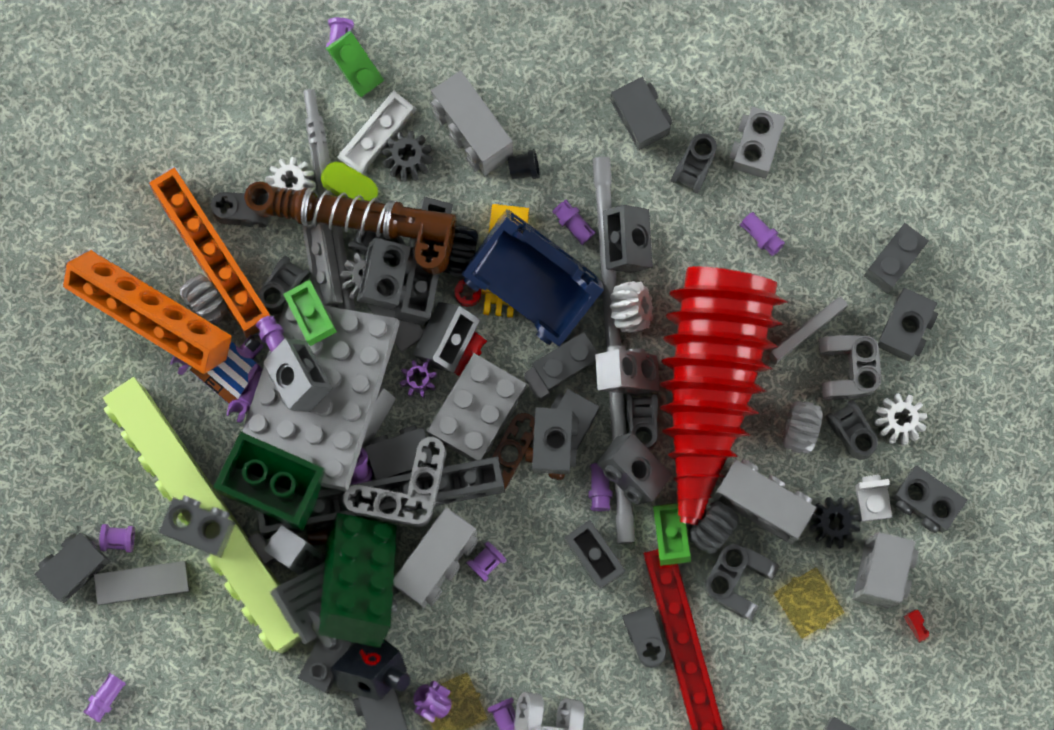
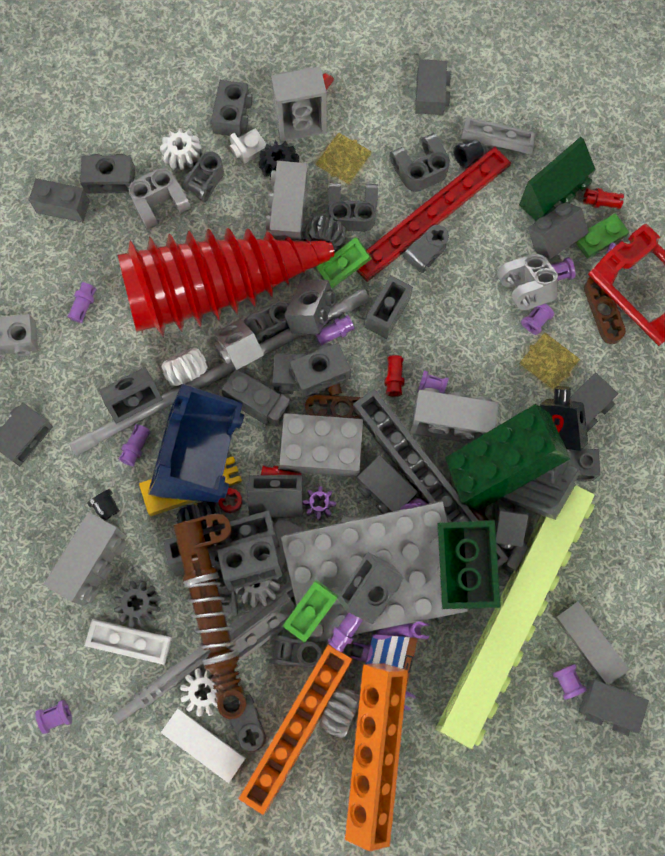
camera: 120 degrees left, 5 degrees down
(194, 533) = (546, 604): dark grey brick -> none
(243, 161) = (203, 745): none -> white tile
(344, 179) = (183, 641): lime tile -> none
(355, 64) = (74, 689): bright green plate -> none
(414, 495) = (417, 449): light grey beam -> none
(432, 701) = (557, 371): medium lavender gear -> none
(517, 526) = (394, 379): none -> red pin
(694, 167) = (50, 374): dark grey piece -> none
(749, 686) = (422, 167): none -> dark grey piece
(802, 427) = (219, 208): light grey gear -> none
(808, 330) = (134, 233): light grey tile -> none

